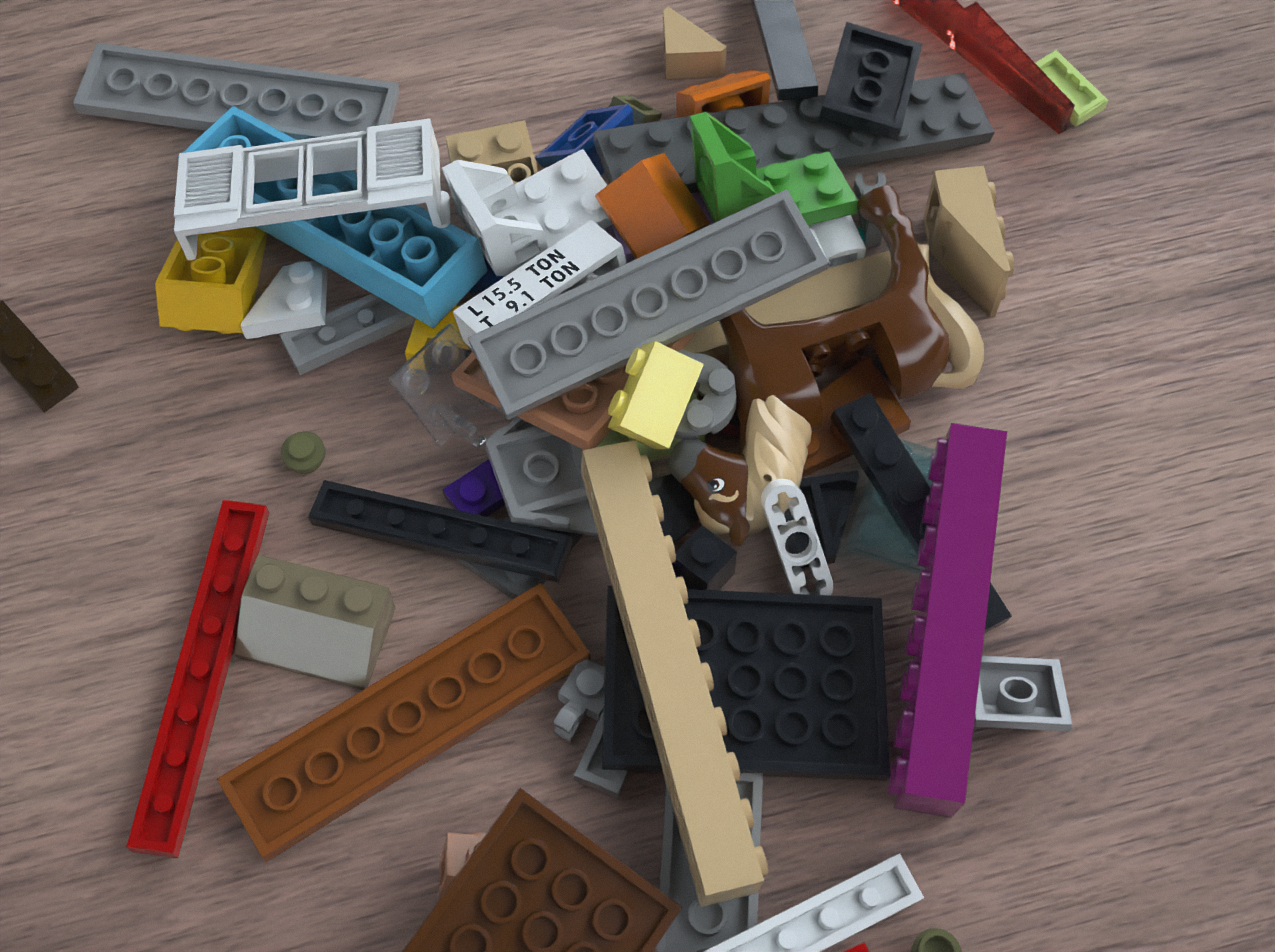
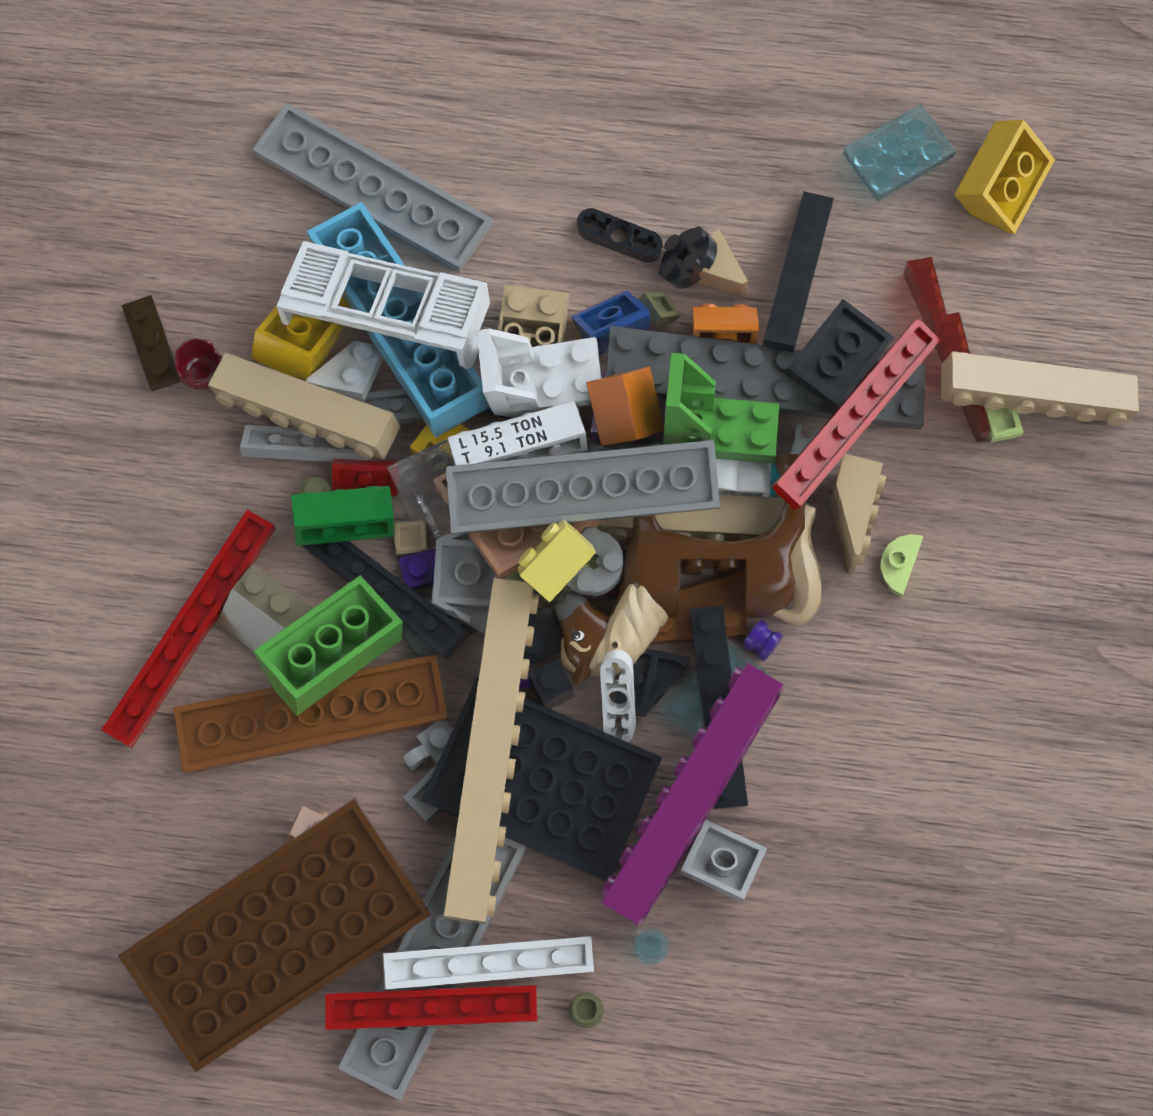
camera: 25 degrees right, 10 degrees up
(94, 354) = (196, 363): none -> dark red hair
(251, 352) = (304, 406): none -> tan brick
(269, 399) = (290, 444): none -> light grey plate
(351, 461) = (342, 515): none -> green brick
(360, 411) = (362, 474): none -> red plate
(399, 615) = (329, 644): none -> bright green slope
(446, 462) = (410, 537): none -> tan tile
(526, 67) = (643, 235): none -> black beam
(644, 46) = (687, 257): none -> black plate
(923, 132) = (855, 414): none -> plate
(932, 419) = (762, 640): none -> dark purple wheel
(979, 837) = (651, 946): none -> clear light blue plate
(1042, 283) = (898, 562): none -> yellowish green plate
(1103, 44) = (1039, 388): none -> tan brick

